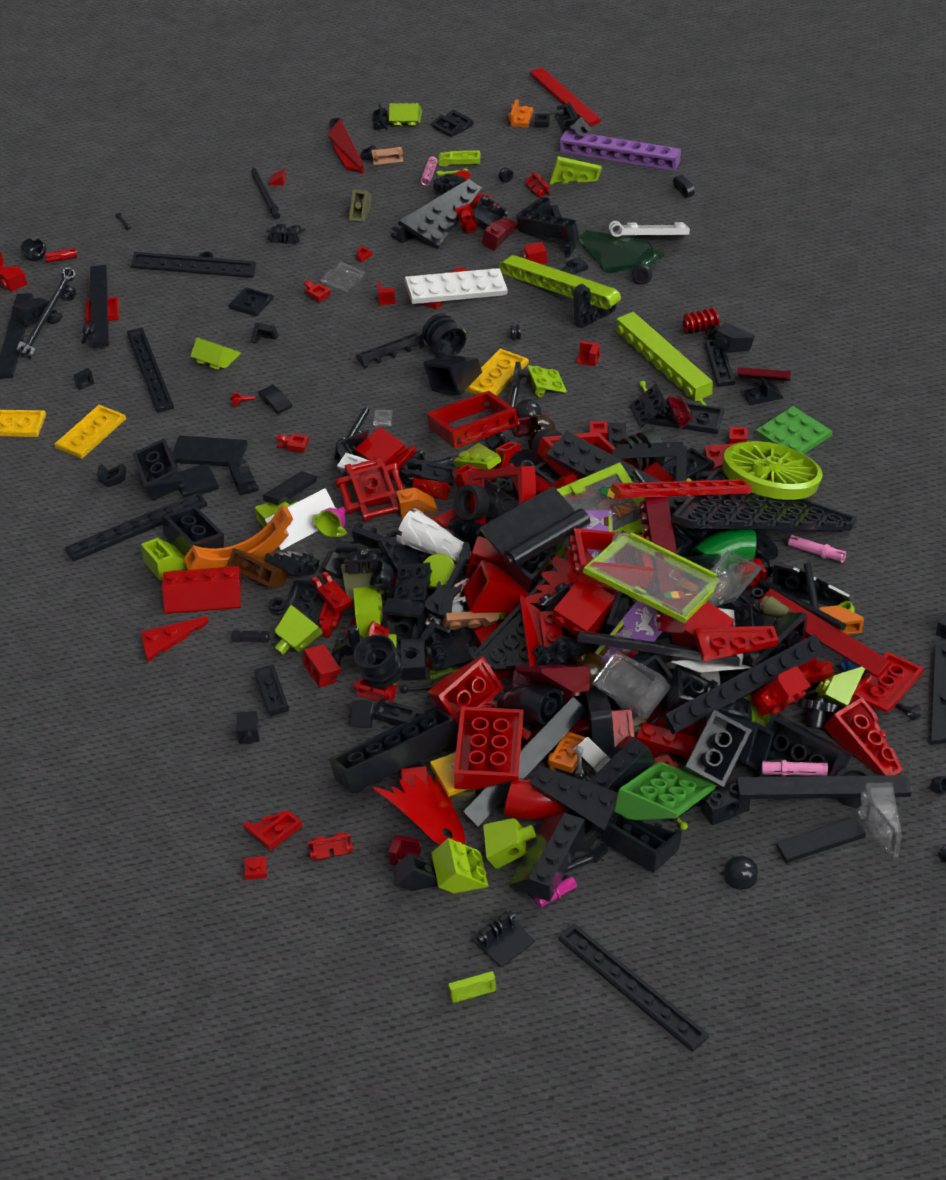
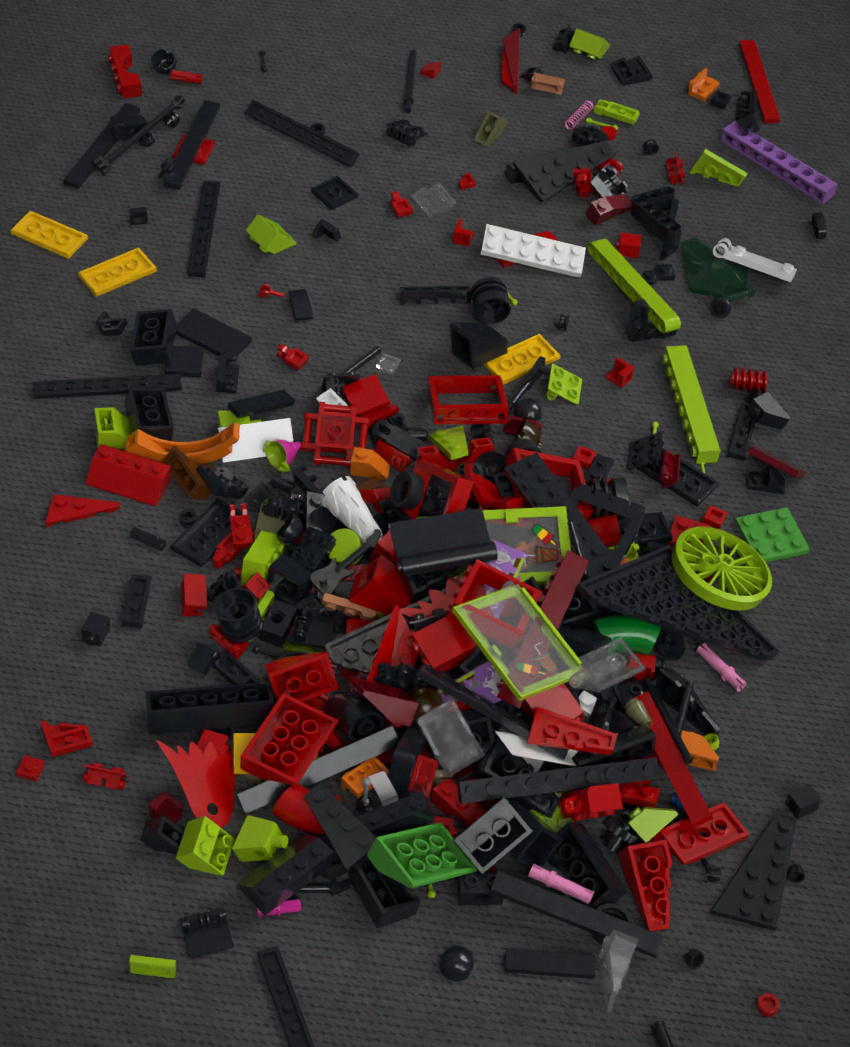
camera: 15 degrees right, 5 degrees up
(295, 631) = (187, 551): lime torso -> none
(680, 488) = (609, 557): red tile -> none

